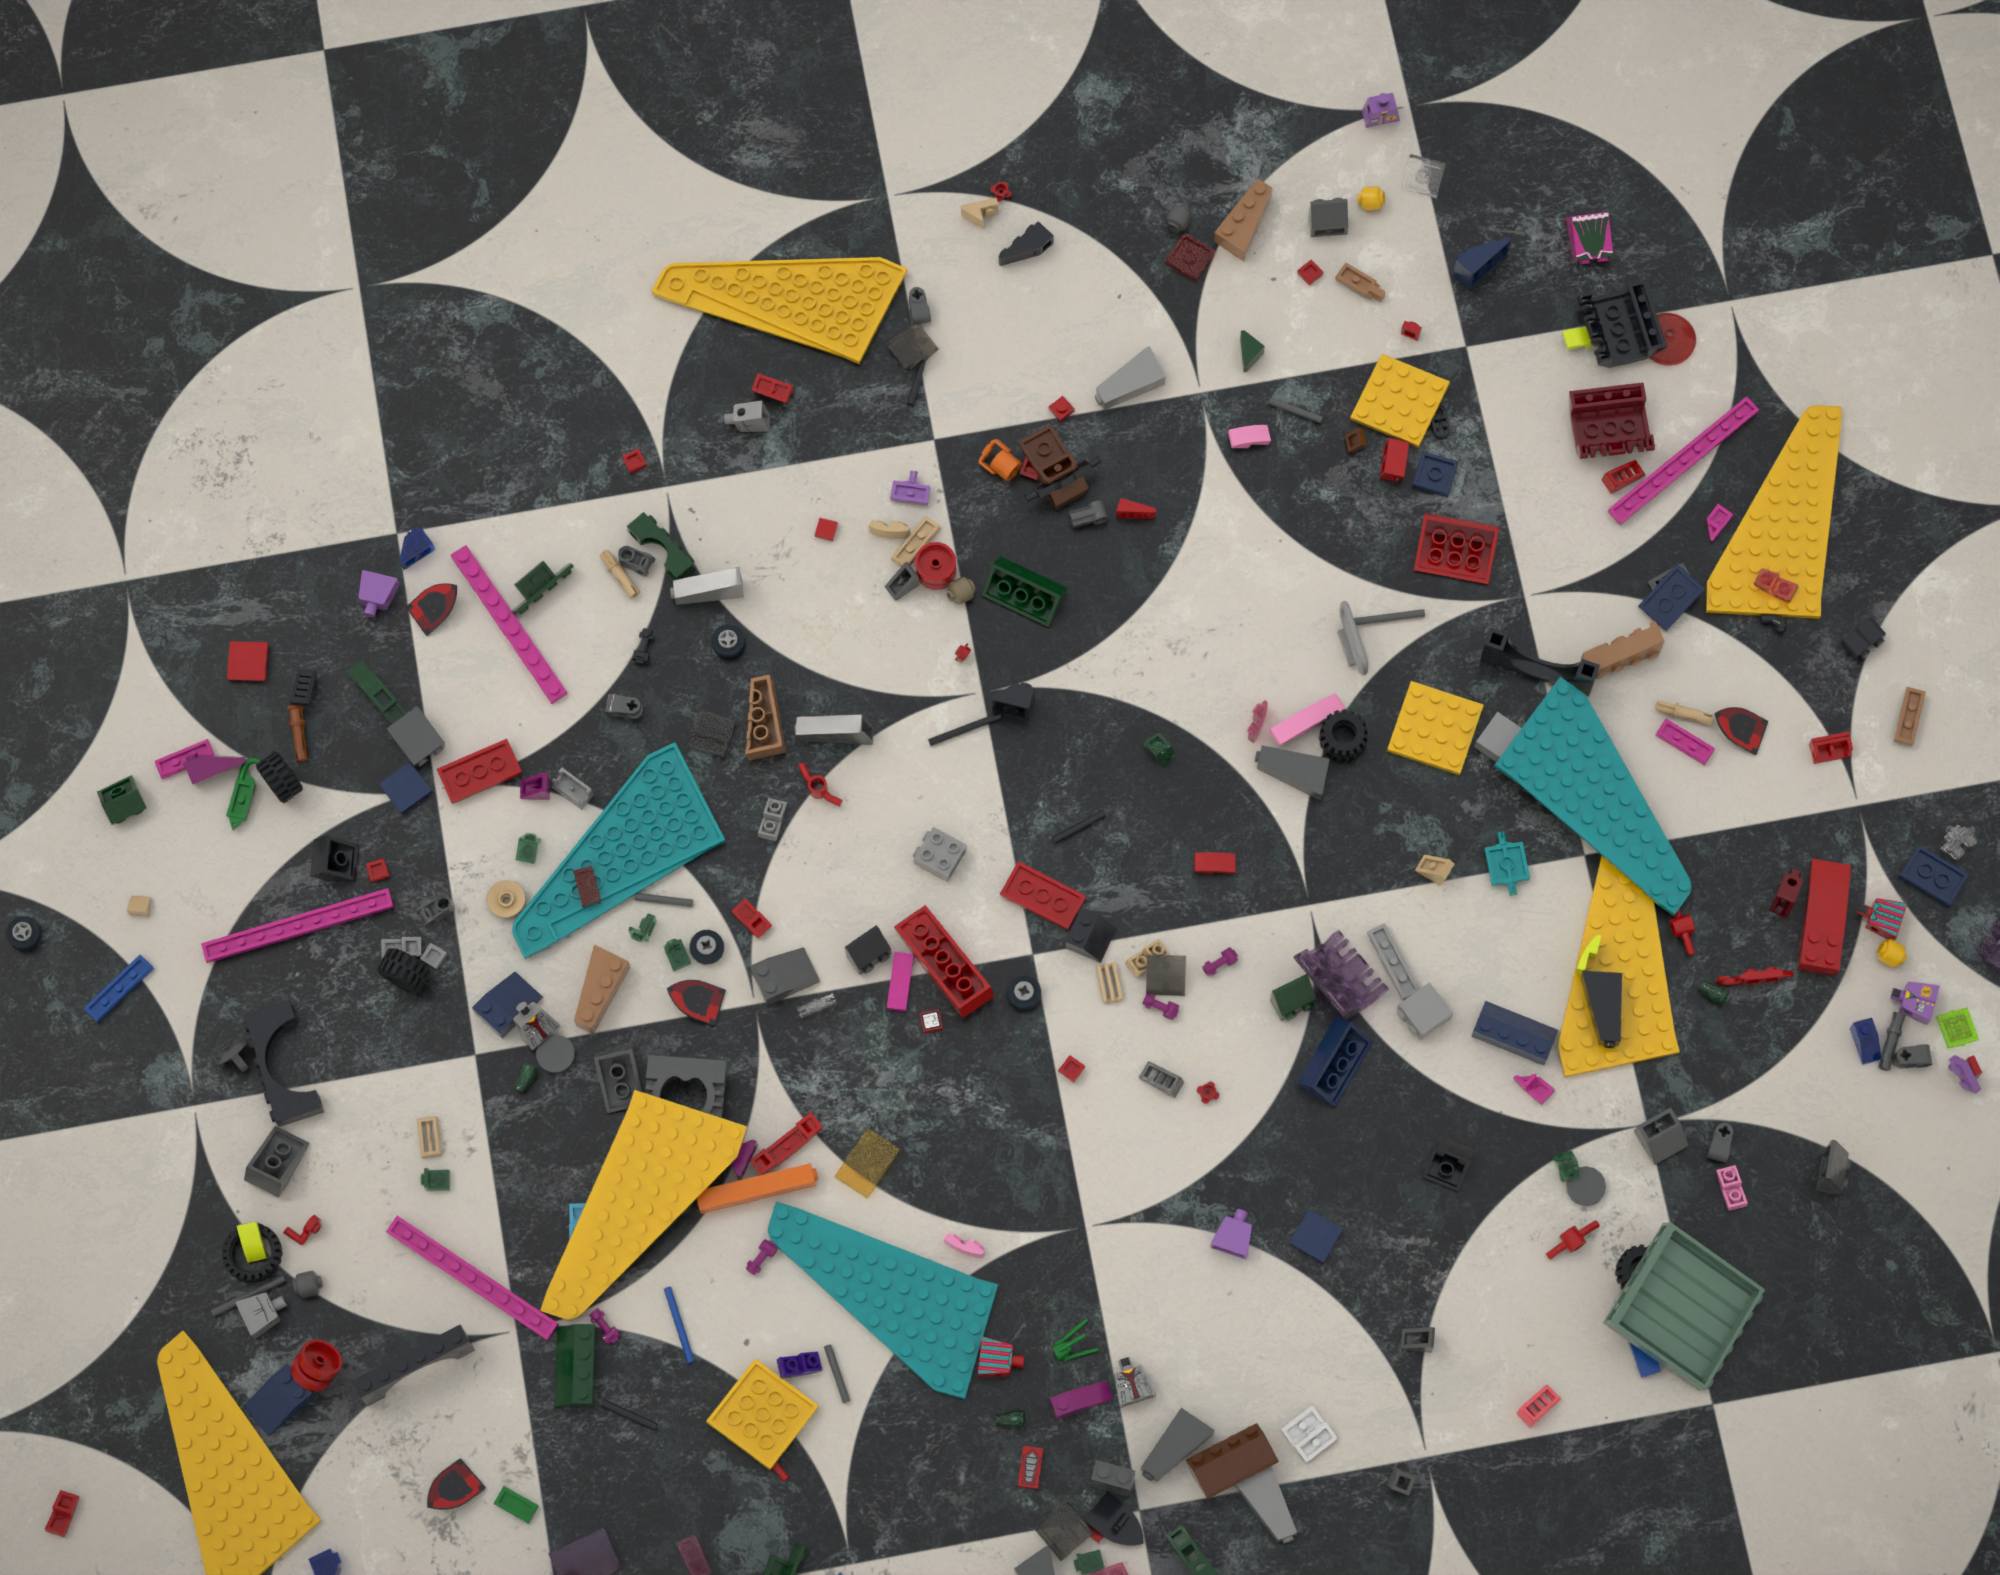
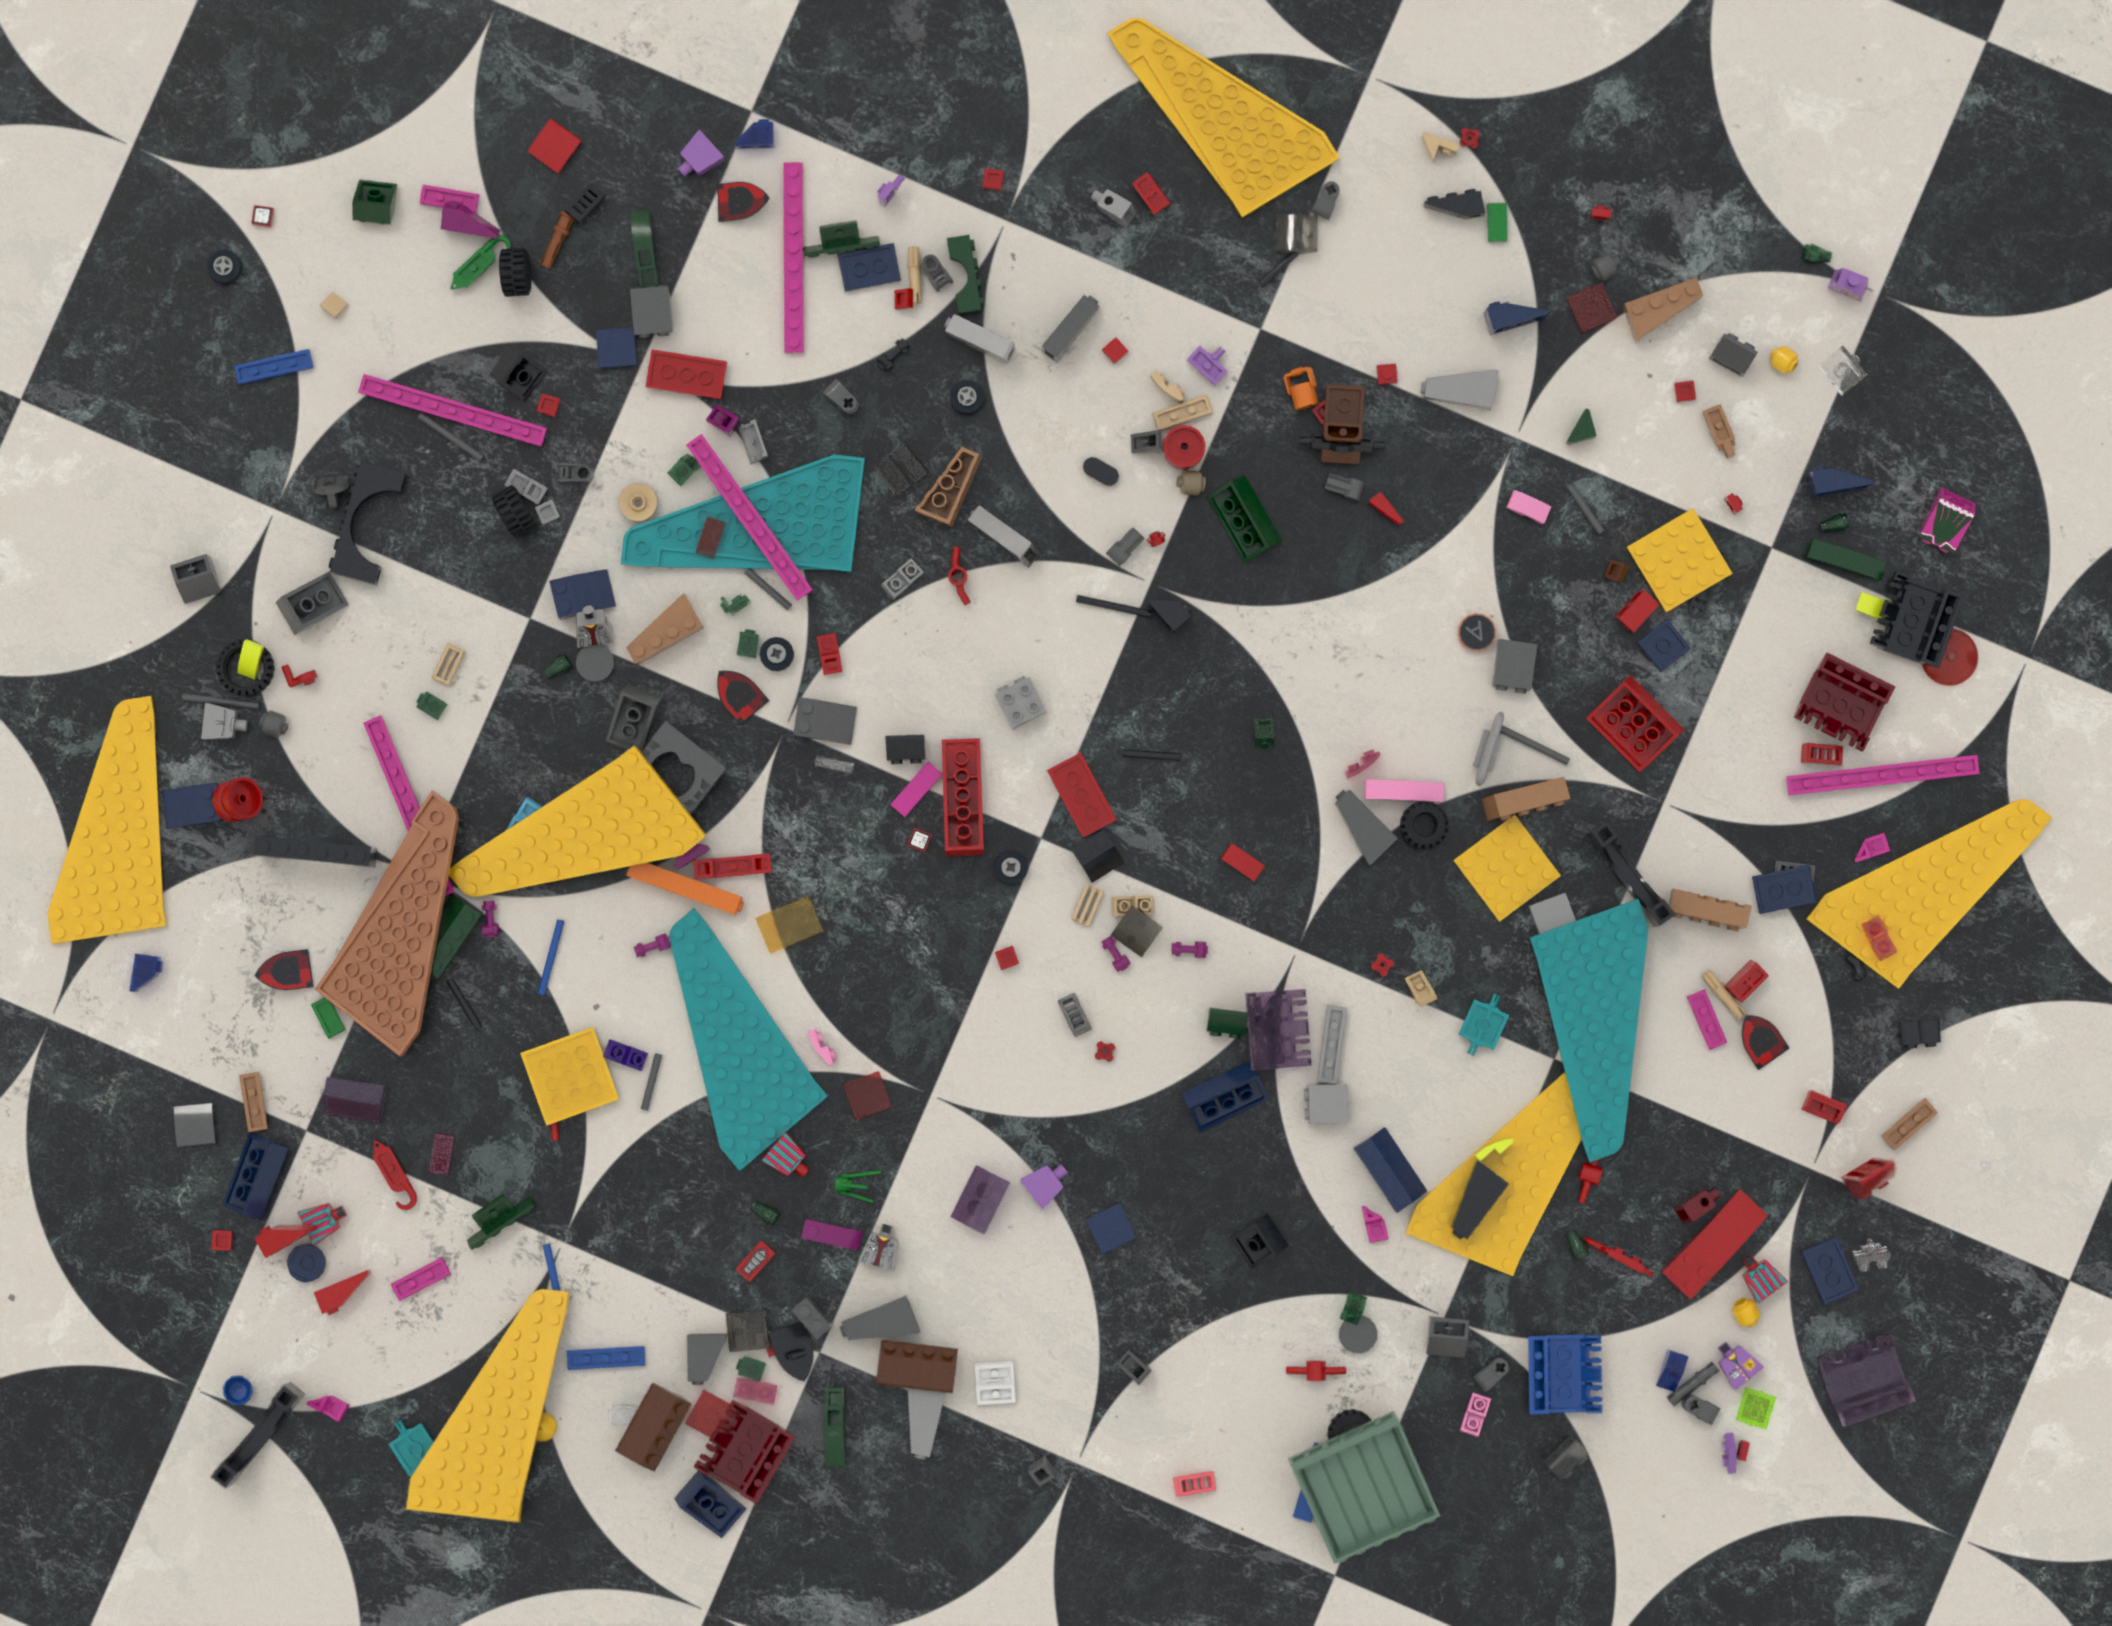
camera: 30 degrees right, 15 degrees up
(31, 872) = (262, 216): none -> tile
(160, 1204) = (195, 578): none -> dark grey slope
(309, 948) = (450, 436): none -> dark grey bar
(535, 1409) = (391, 949): none -> nougat wing
(552, 519) = (887, 191): none -> medium lavender plate
(577, 592) = (869, 267): none -> dark blue tile
(609, 848) = (749, 517): none -> dark pink plate
(623, 597) = (903, 299): none -> red tile
(777, 534) = (1070, 328): none -> dark grey slope
(880, 630) = (1100, 471): none -> black tile
(941, 676) = (1122, 550): none -> dark grey piece
(1031, 1262) = (867, 1095): none -> clear red tile
(1068, 240) = (1497, 222): none -> green tile
(1131, 298) = (1510, 316): none -> dark blue slope
(1146, 181) = (1600, 213): none -> red plate
(1188, 1284) = (980, 1199): none -> clear purple slope
(1277, 560) = (1476, 632): none -> black tile
(1326, 564) = (1514, 665): none -> dark grey brick
(1337, 106) = (1814, 253): none -> clear green cone
(1389, 875) = (1377, 964): none -> red plate
(1411, 661) = (1526, 798): none -> medium nougat wedge
(1503, 294) = (1836, 523): none -> clear green cone
(1531, 315) = (1846, 559): none -> dark green slope
(1694, 688) = (1746, 980): none -> red hinge
(1781, 1102) = (1563, 1373): none -> blue slope
(1912, 770) = (1869, 1176): none -> red slope

